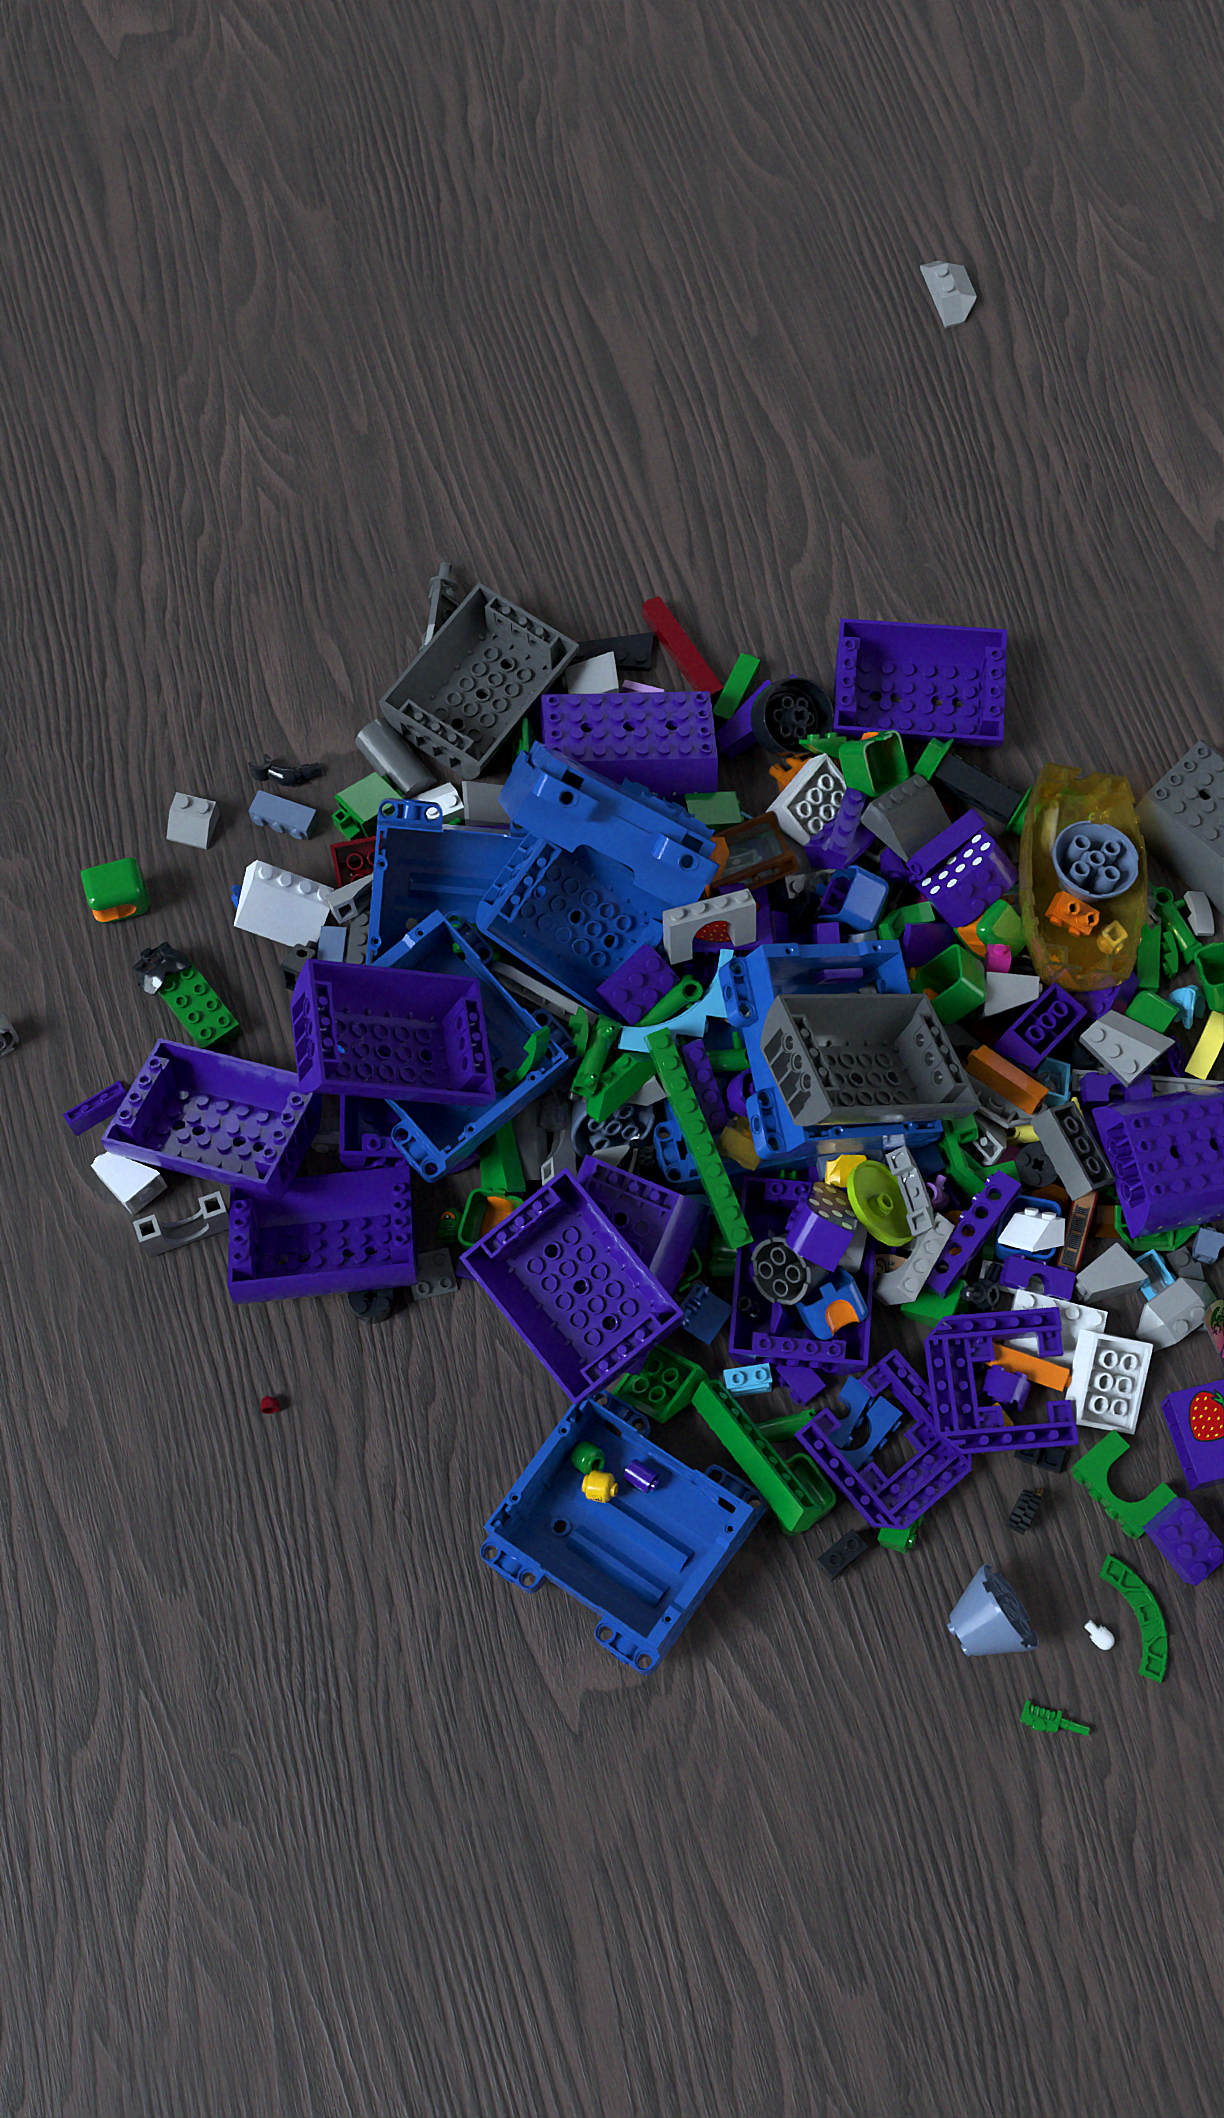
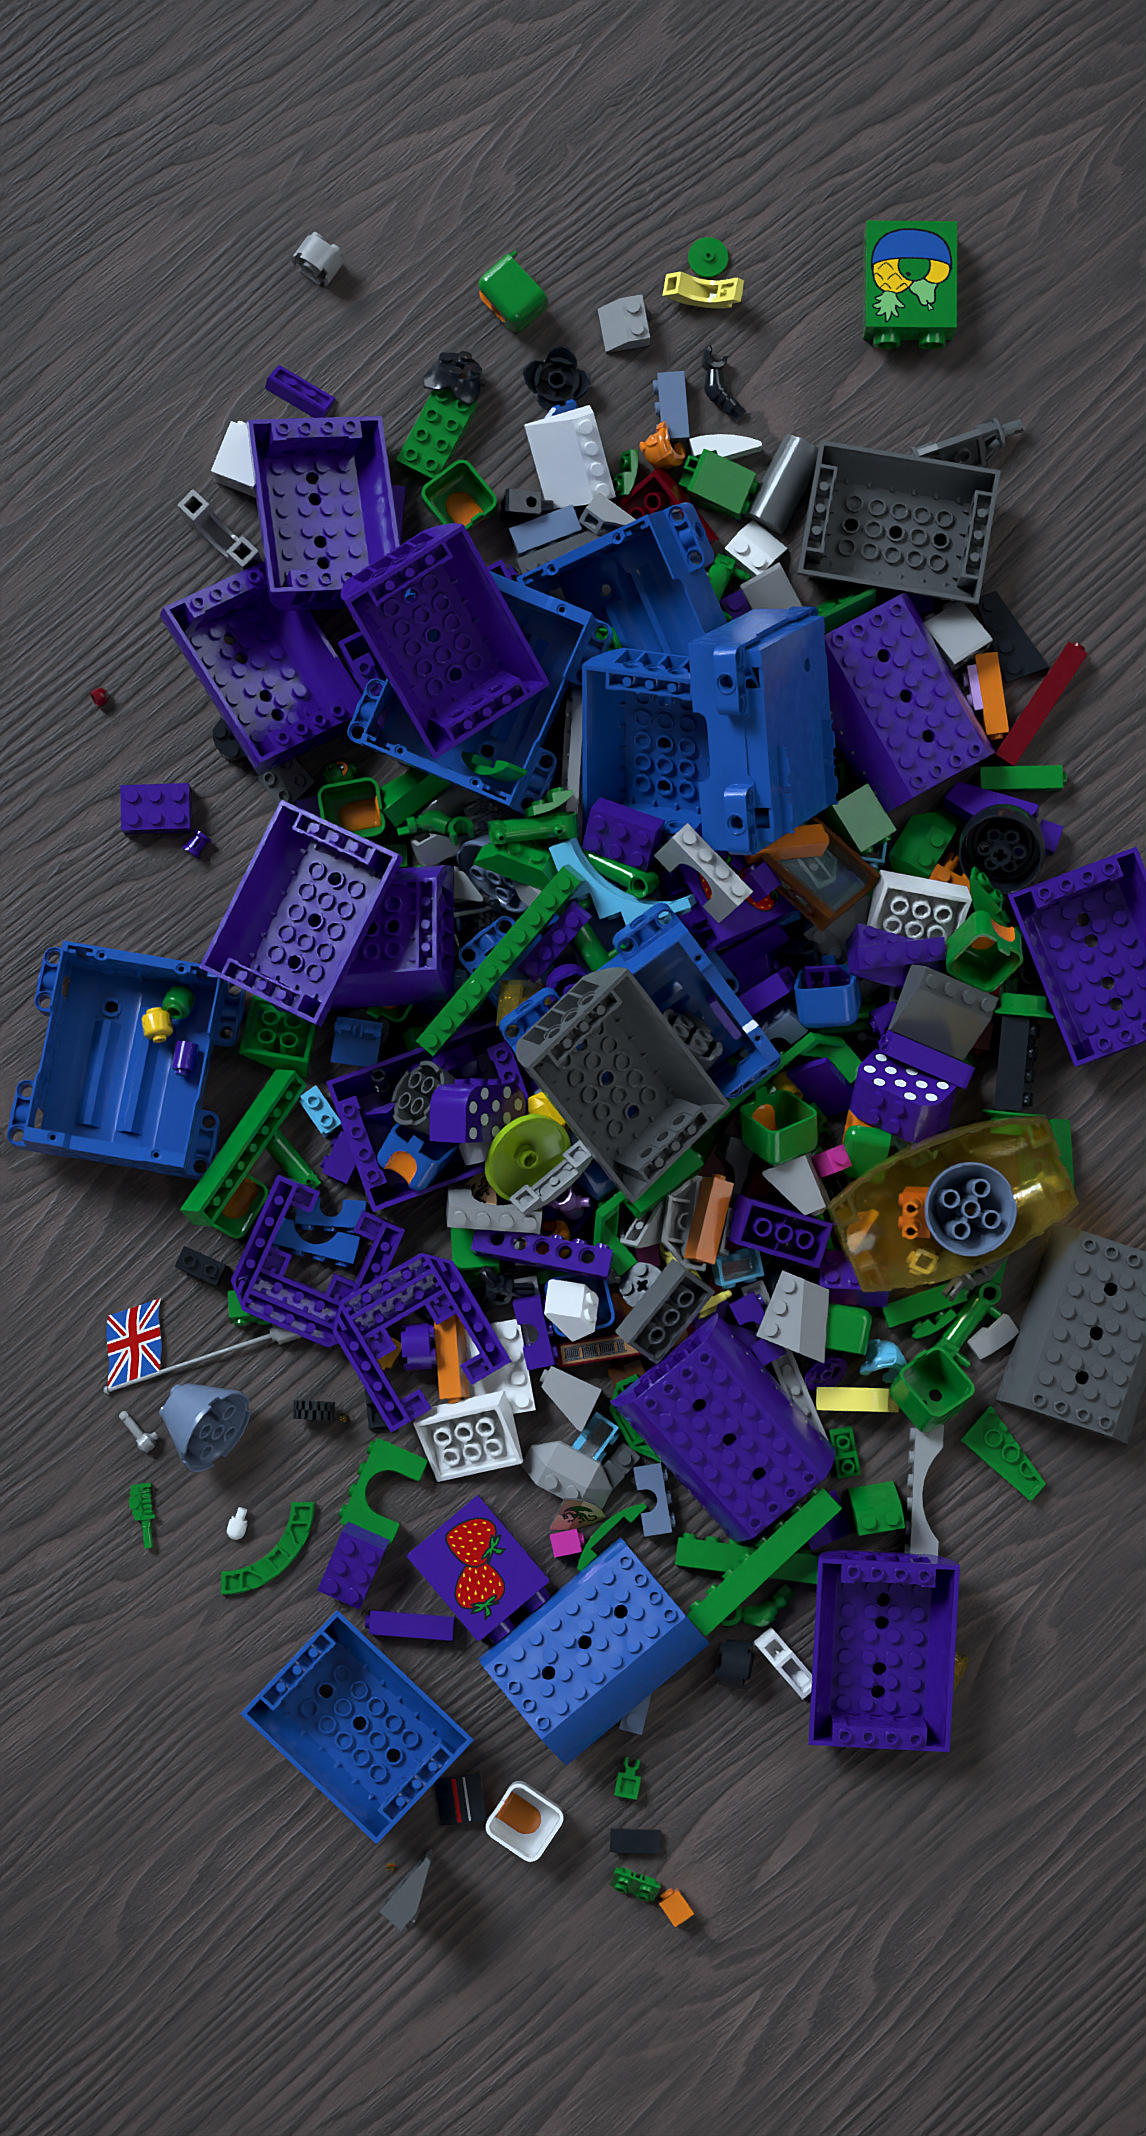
camera: 65 degrees right, 15 degrees up
(174, 736) = (708, 257): none -> green piece
(195, 757) = (702, 292): none -> light yellow arch
(197, 883) = (558, 364): none -> black brick
(264, 1012) = (459, 496): none -> green piece
(284, 592) = (909, 282): none -> brick
(314, 836) = (659, 451): none -> orange helmet
(317, 872) = (624, 481): none -> green slope
(341, 780) = (724, 445): none -> white slope
(398, 1399) = (156, 808): none -> dark purple brick
(448, 1379) = (190, 845): none -> dark purple bush
(542, 1150) = (438, 822): none -> green piece
(653, 677) = (994, 712): none -> orange brick
(752, 783) = (923, 843): none -> green wedge
(888, 1652) = (137, 1346): none -> flag
(984, 1686) = (144, 1440): none -> light grey piece

